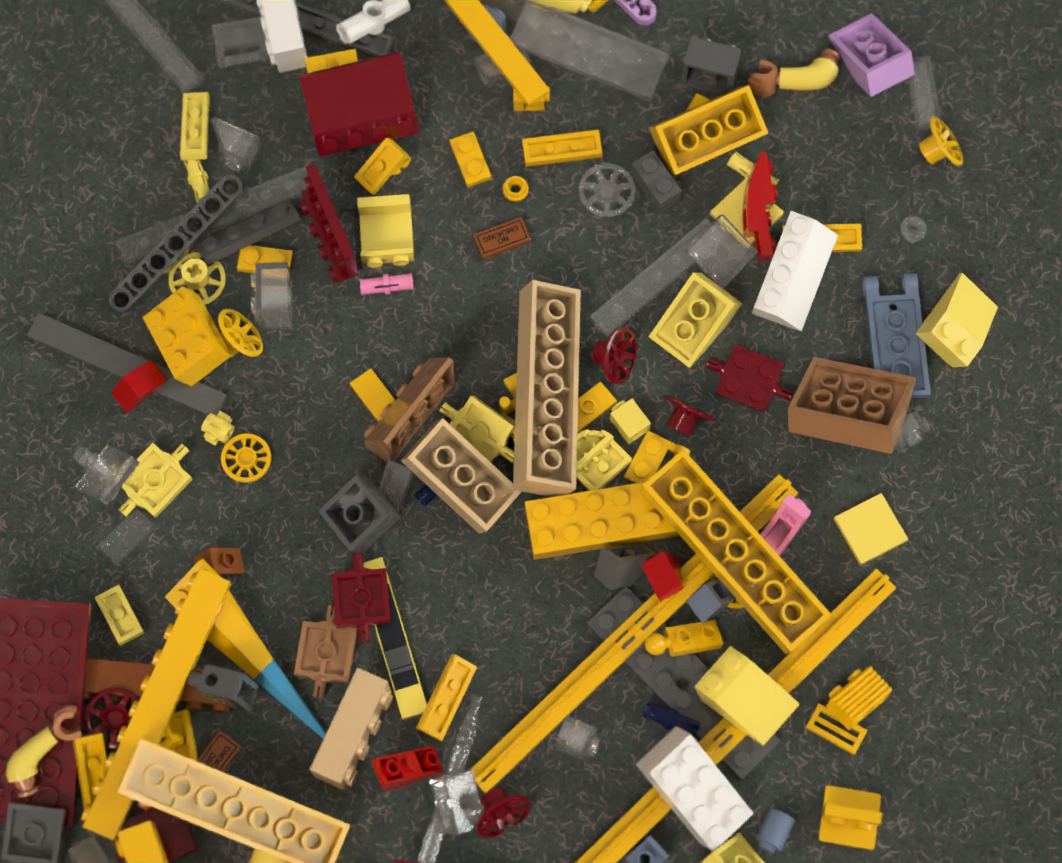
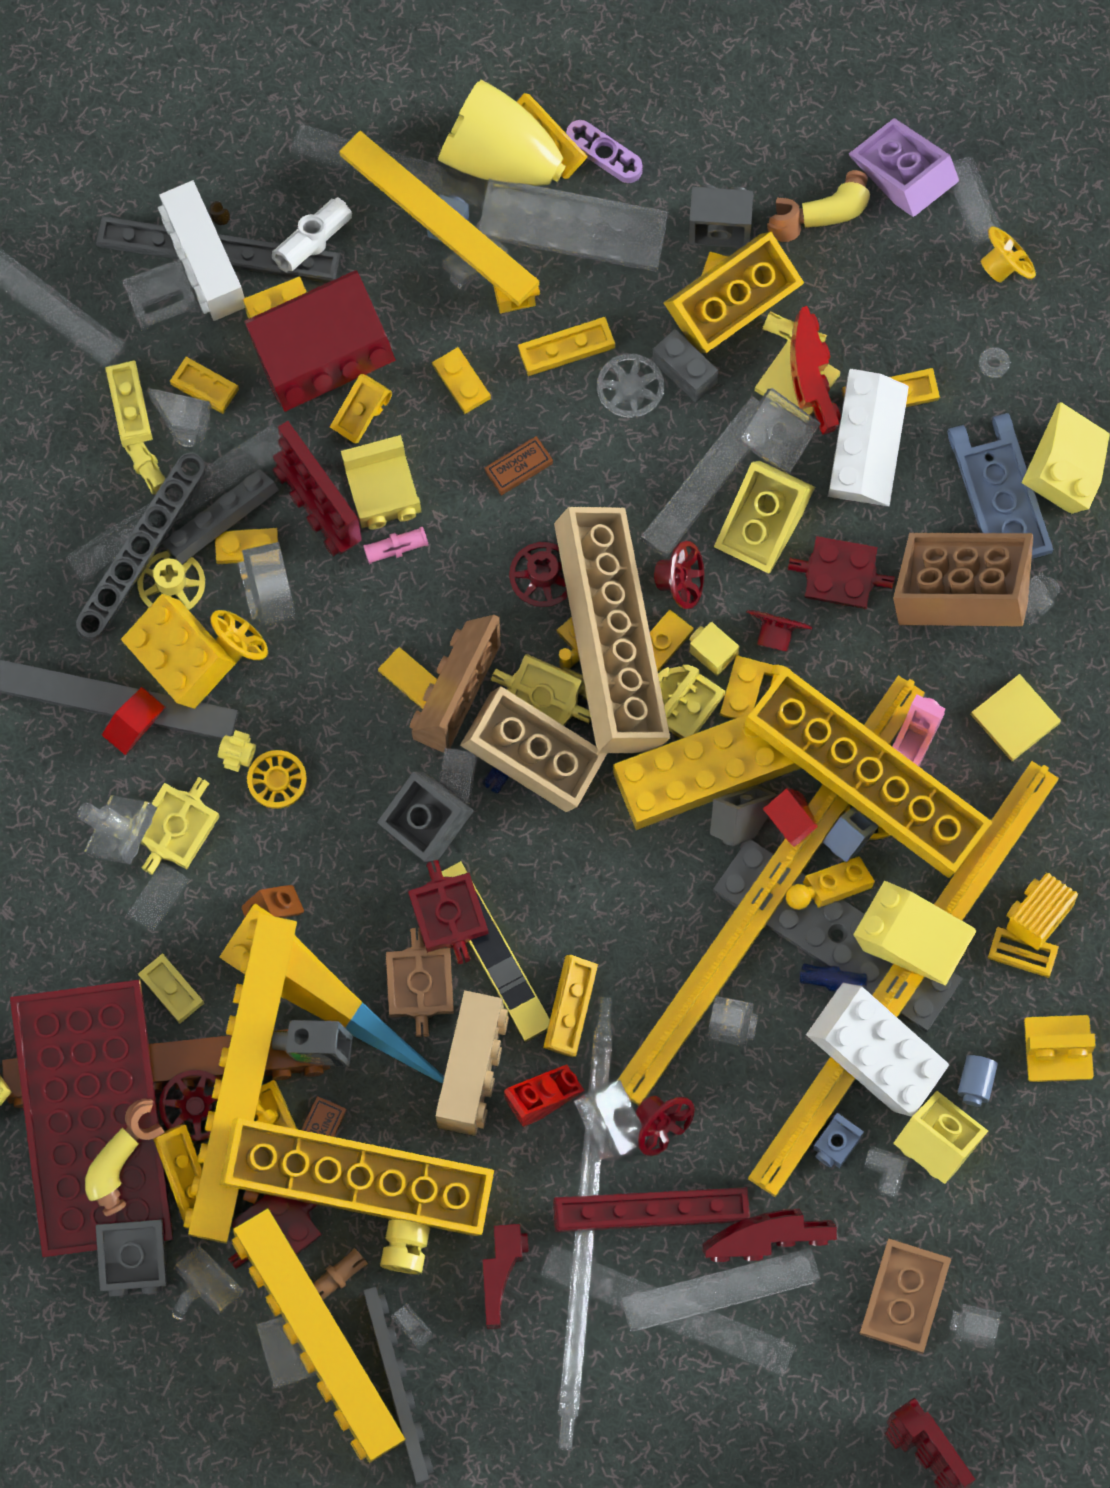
camera: 10 degrees left, 0 degrees up
(260, 122) = (204, 384): none -> yellow plate
(501, 328) = (541, 571): none -> dark red wheel
(515, 181) = (522, 395): yellow plate -> none

